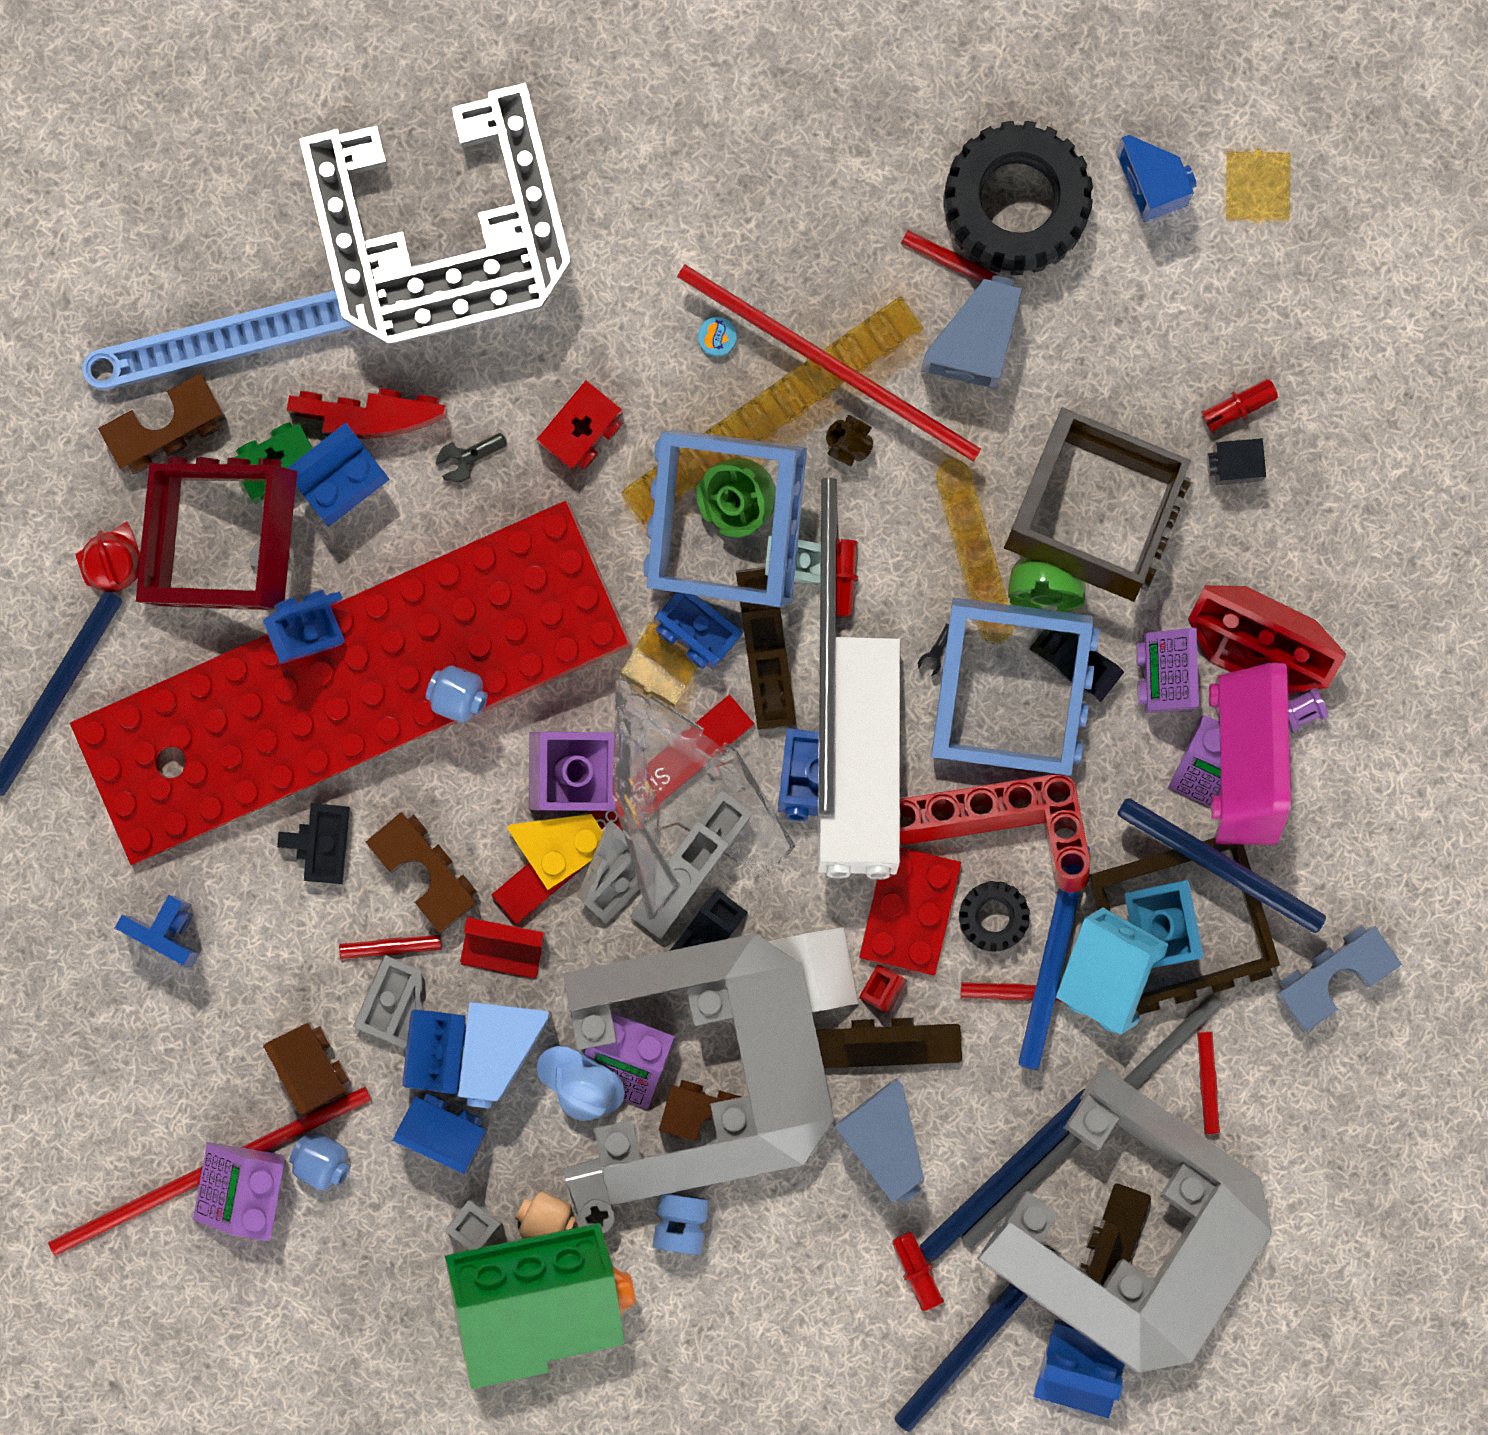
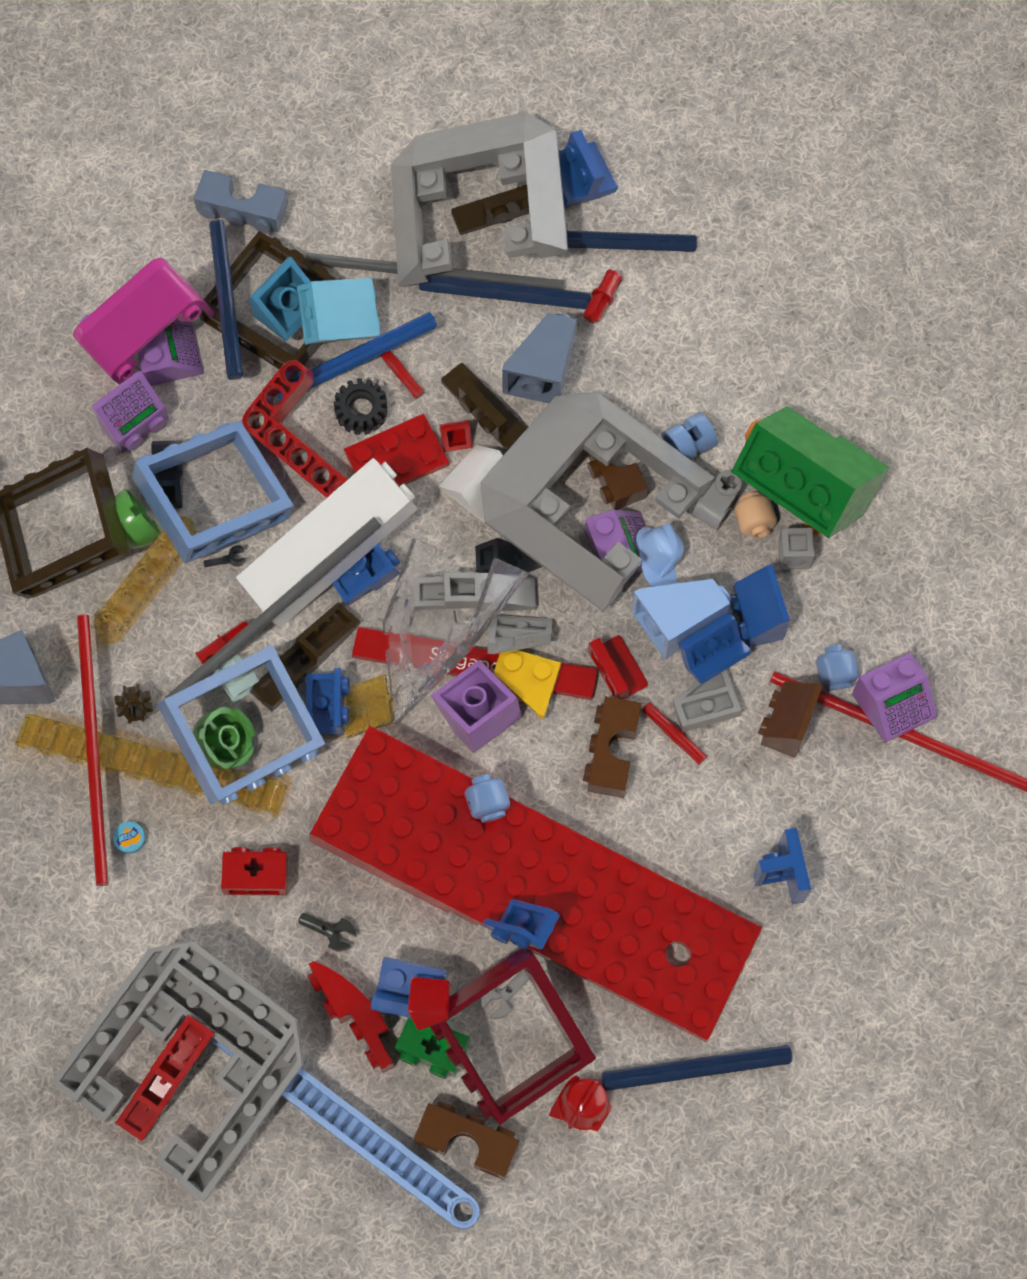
camera: 130 degrees left, 15 degrees down
(300, 476) = (428, 1001): none -> red slope
(321, 843) = (648, 823): black hinge -> none
(444, 191) = (165, 1077): none -> red slope
(1208, 1082) = (359, 228): red piece -> none
(1250, 629) = (66, 376): red wedge -> none

